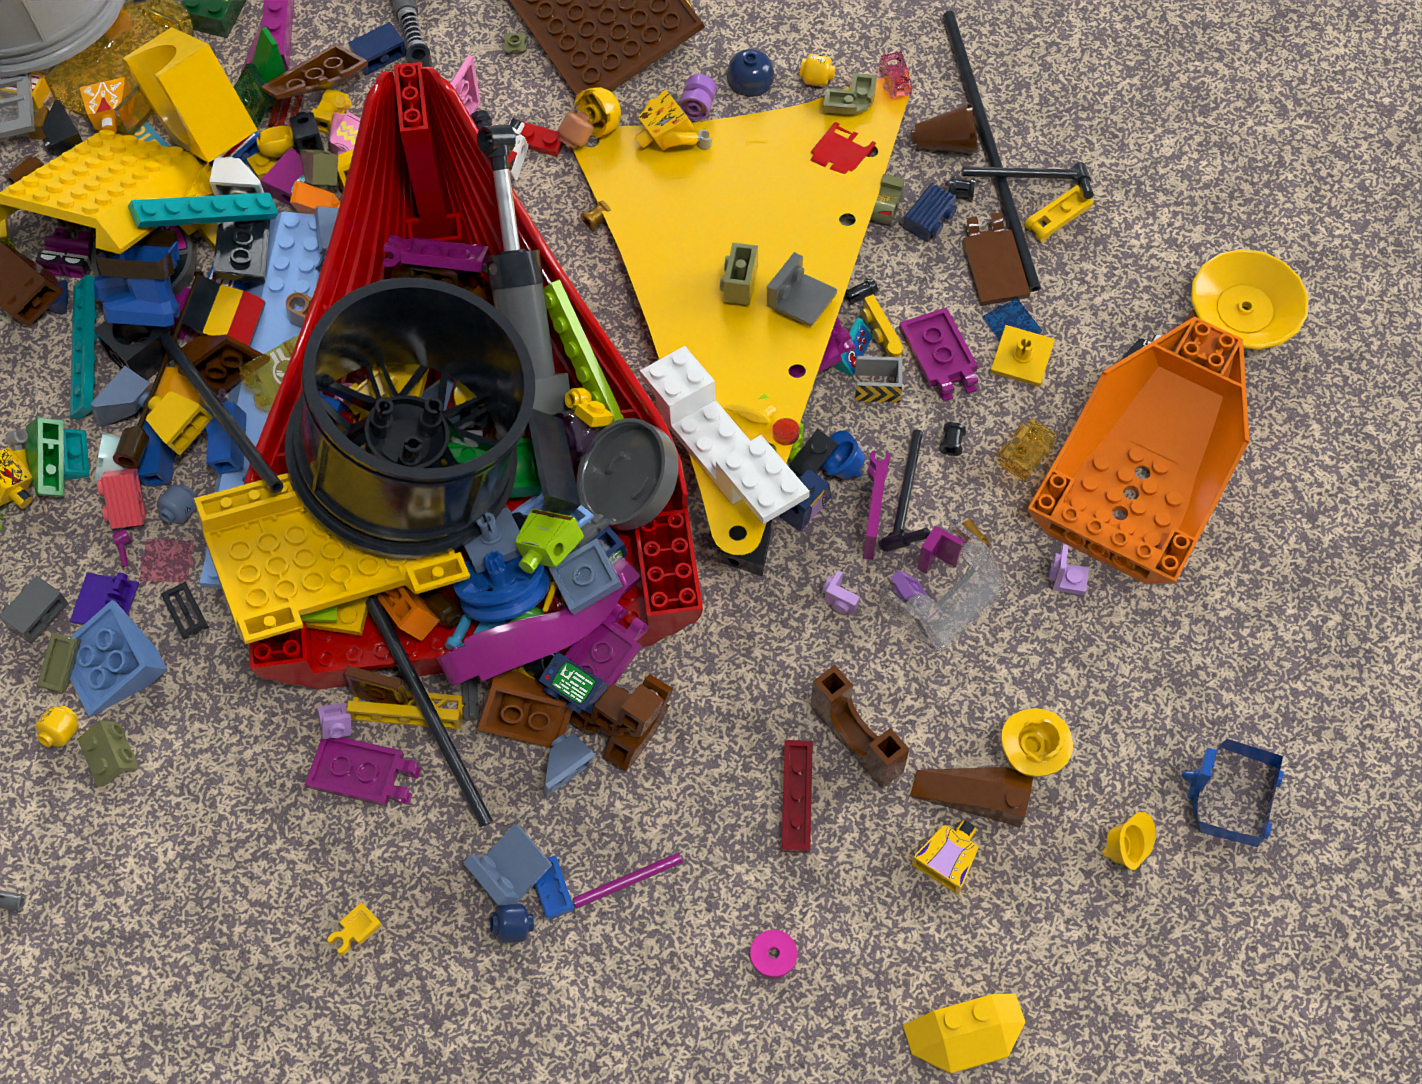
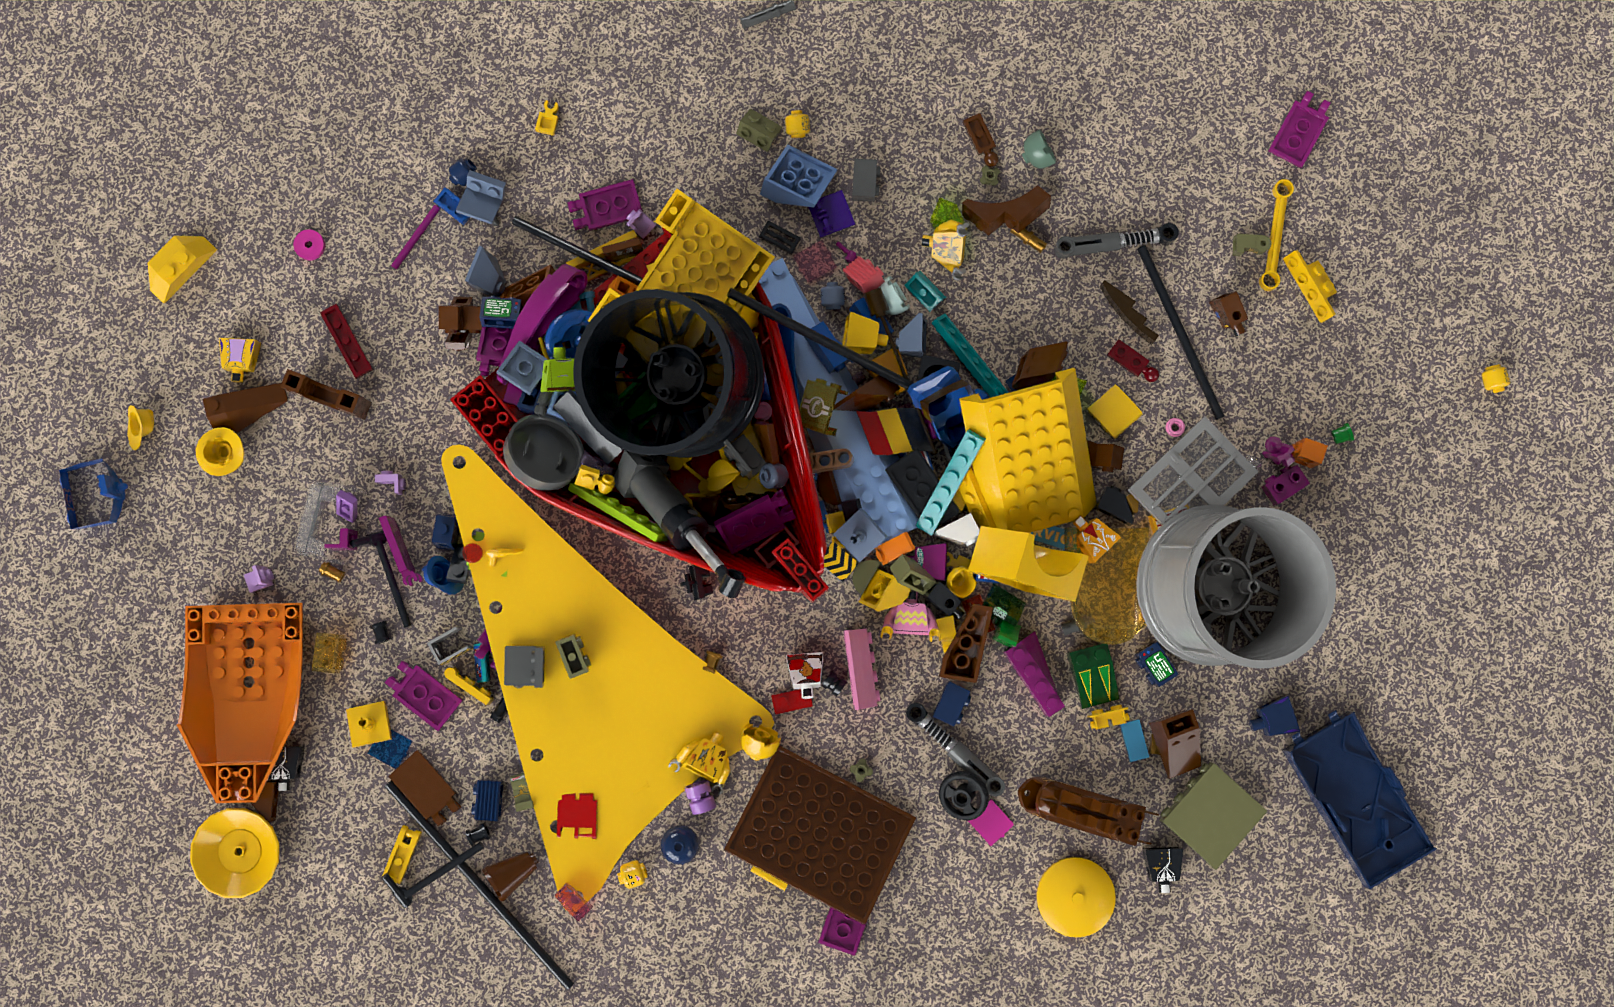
camera: 150 degrees right, 20 degrees up
(46, 455) = (933, 274): green slope -> none
(58, 662) = (826, 160): olive tile -> none
(575, 129) = (765, 716): nougat head -> none
(714, 440) = (499, 514): white bracket -> none
(851, 101) = (589, 866): olive plate -> none

